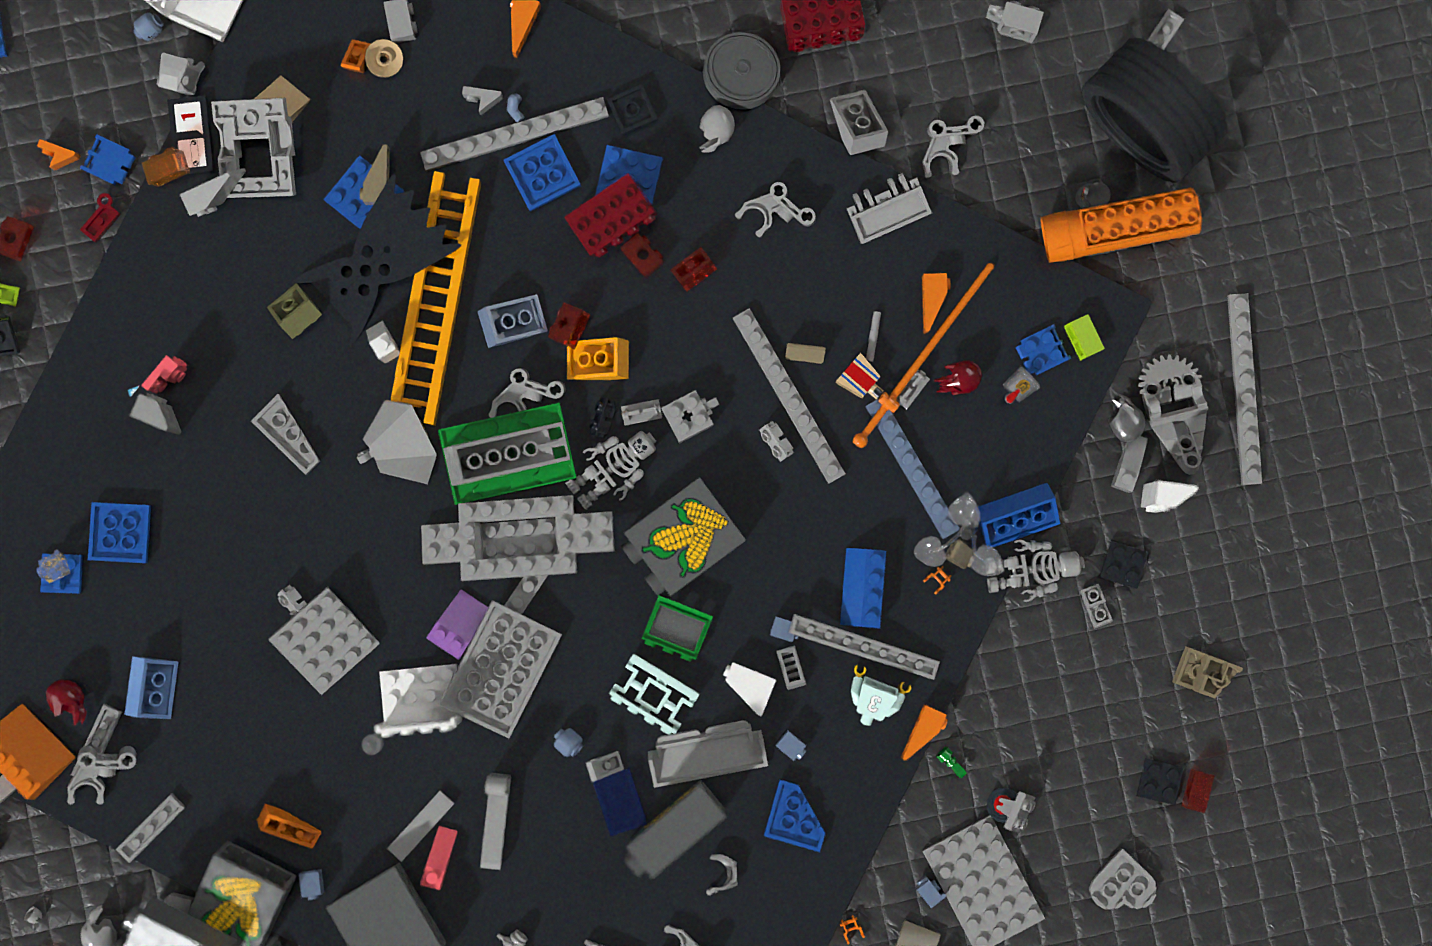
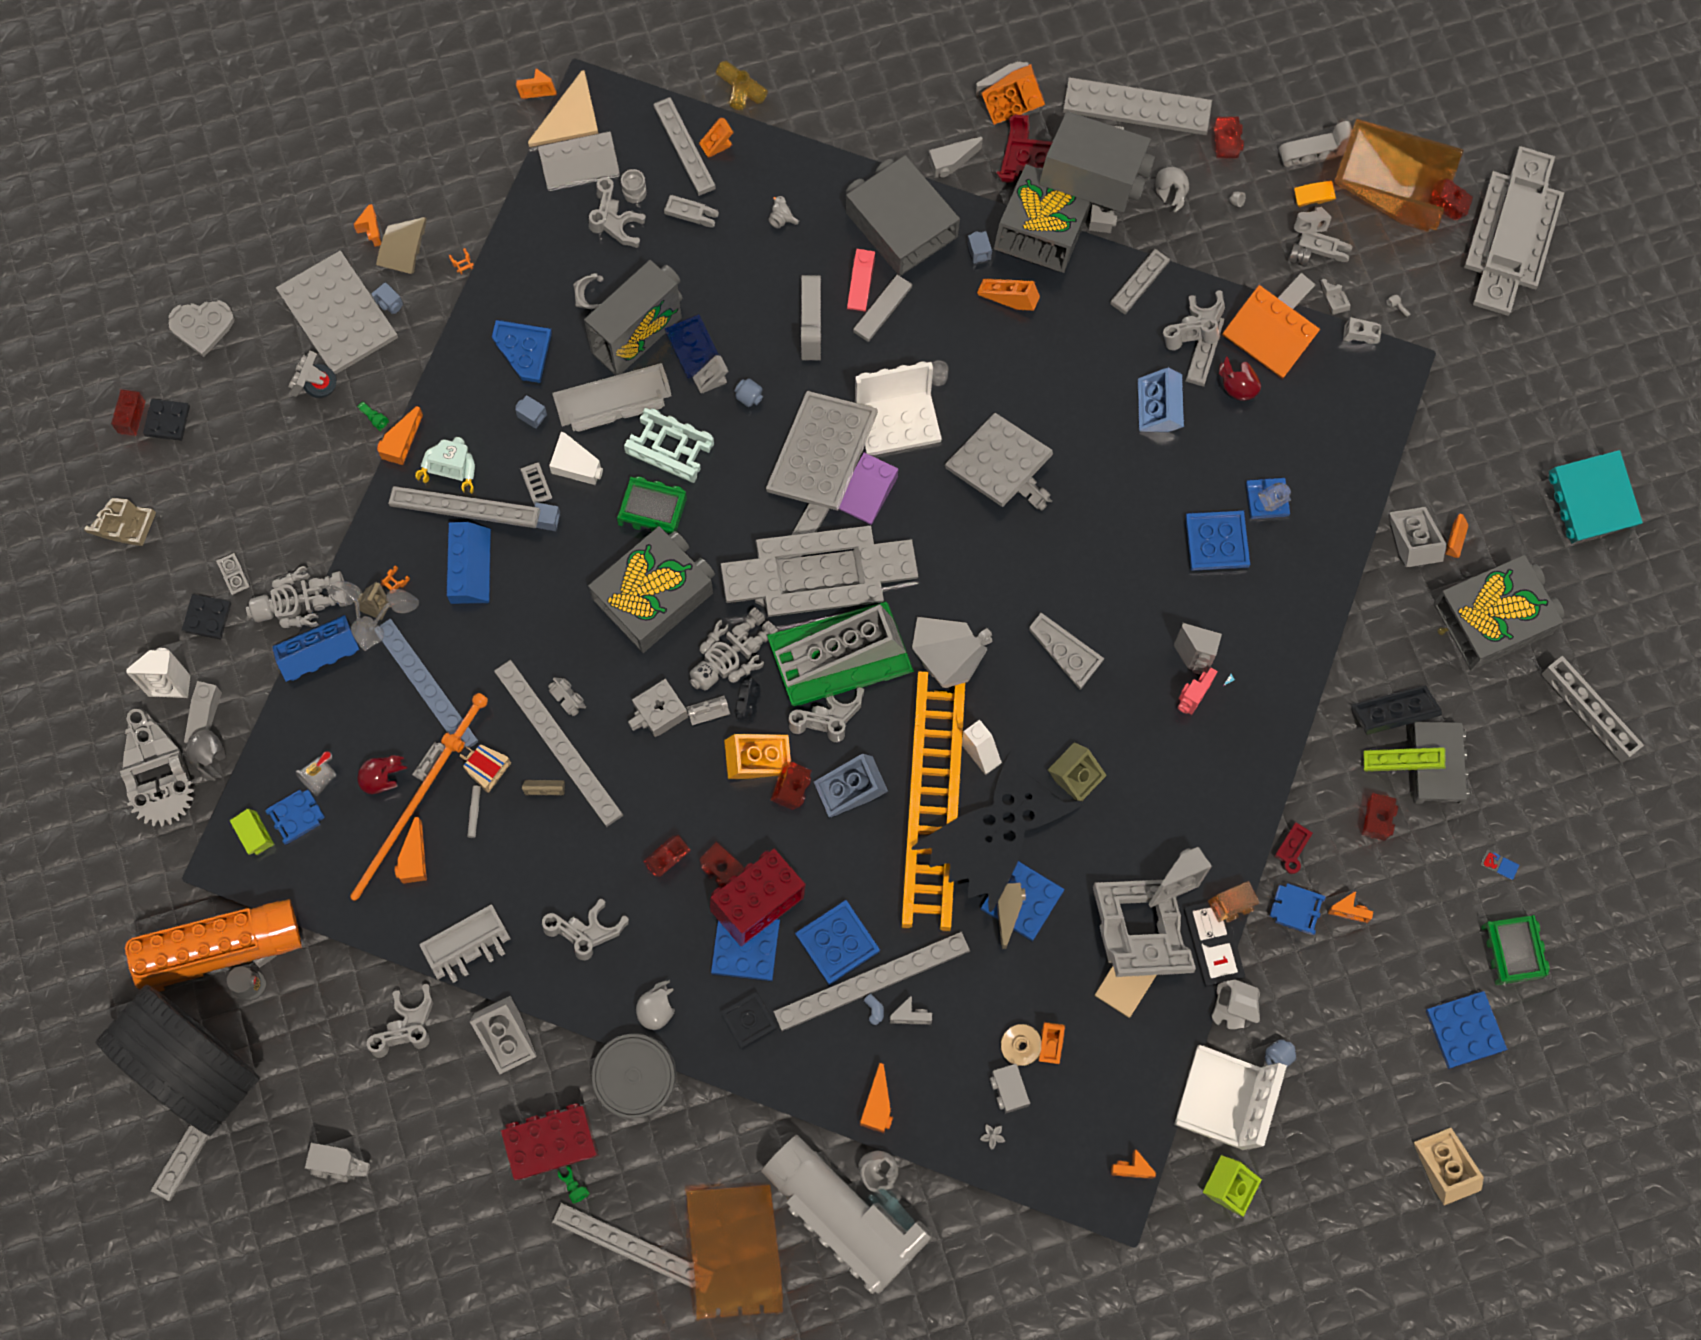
camera: 175 degrees right, 15 degrees down
(1244, 389) = (83, 803): light grey plate -> none

